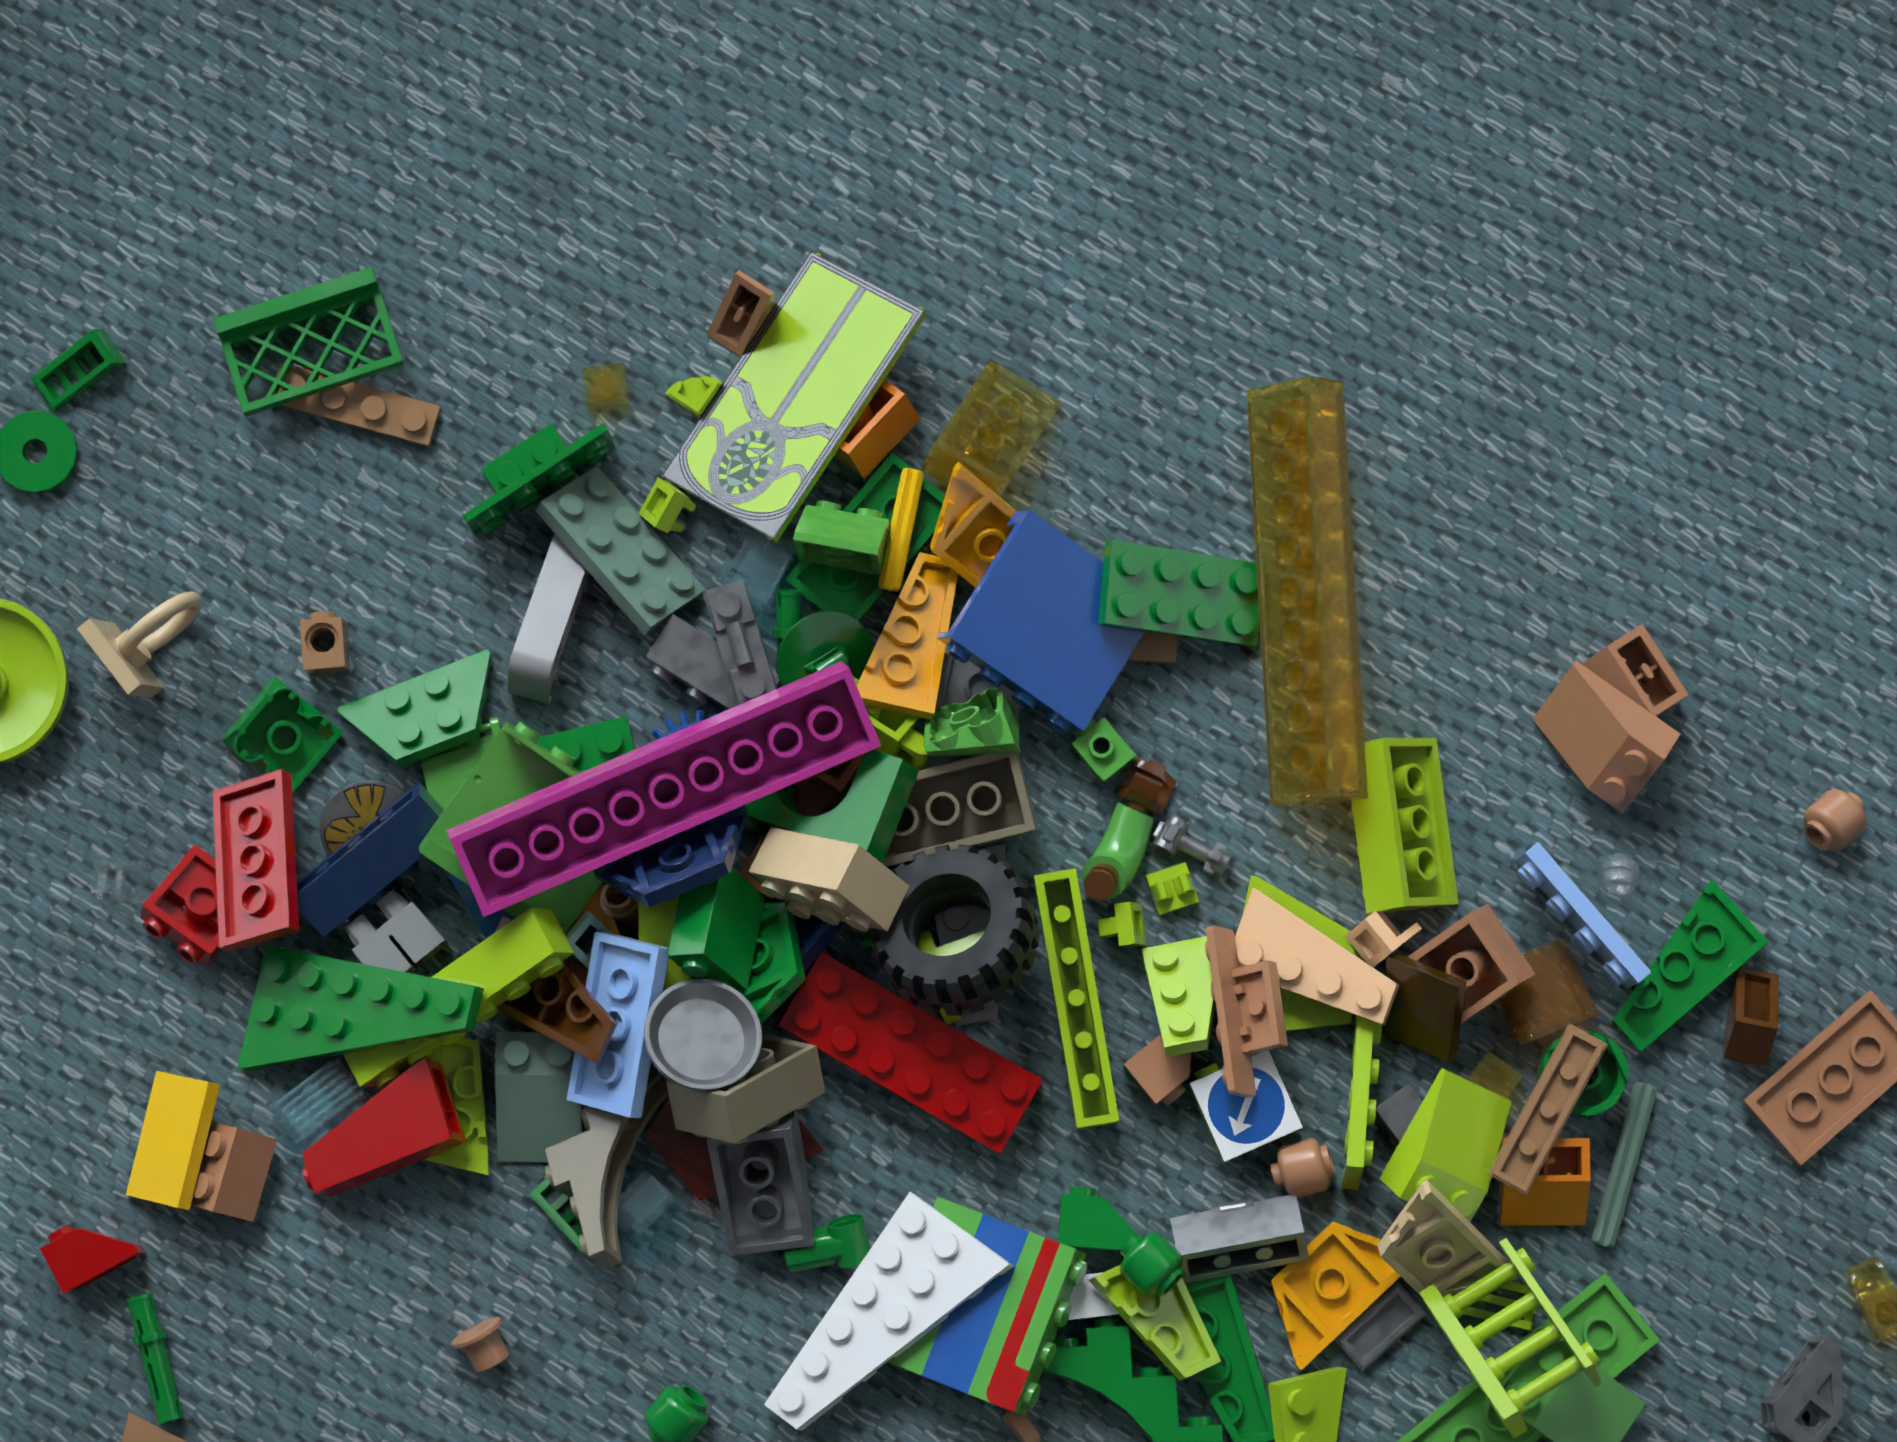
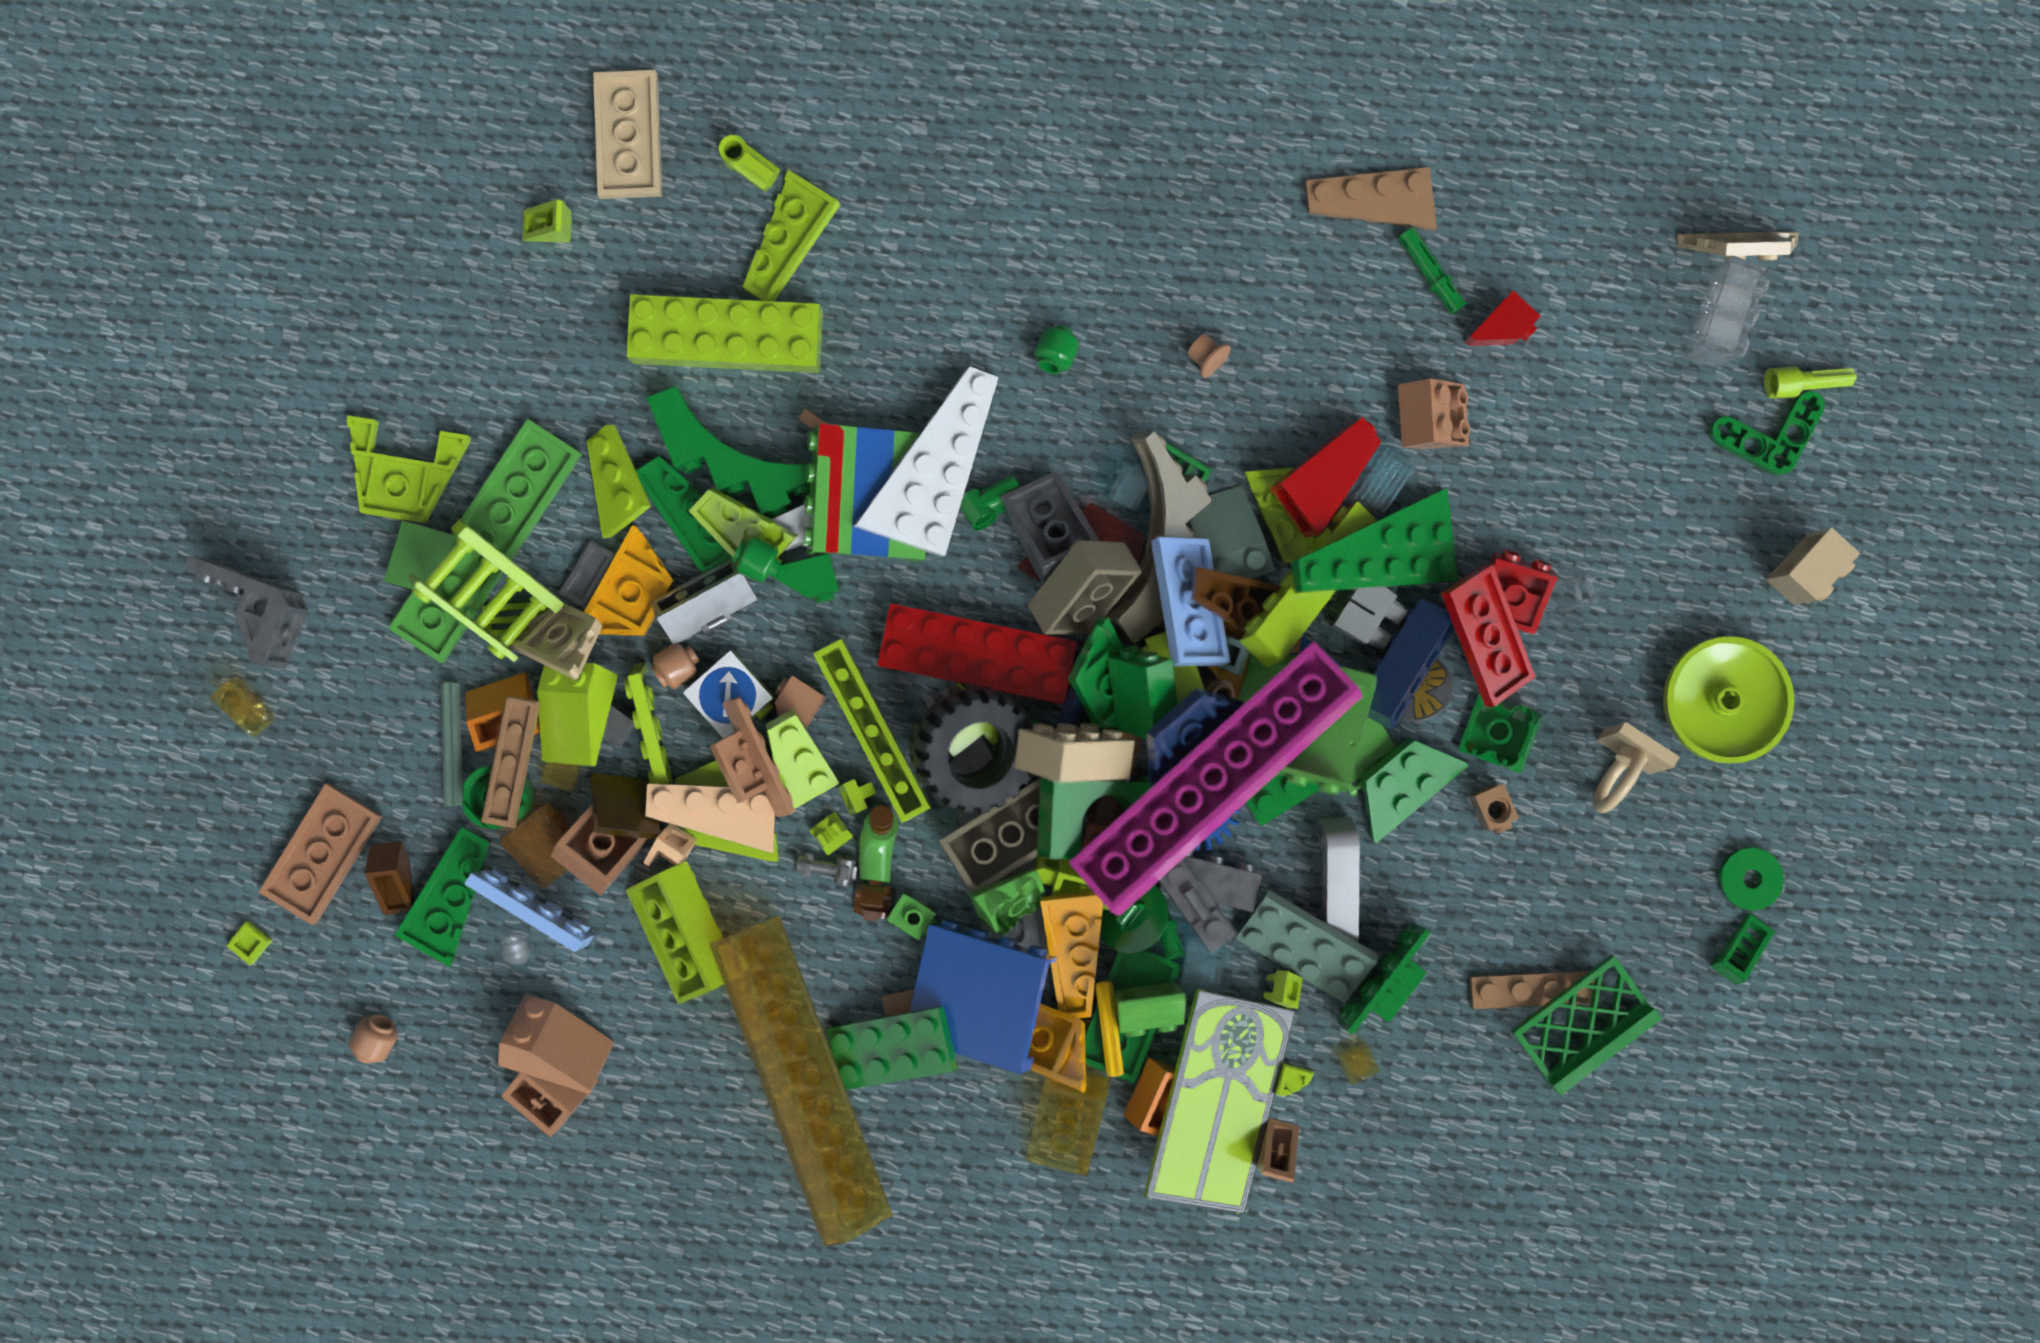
camera: 160 degrees right, 5 degrees up
(173, 1140) = (1474, 421): yellow tile -> none
(702, 1035) = (1127, 611): flat silver piece -> none

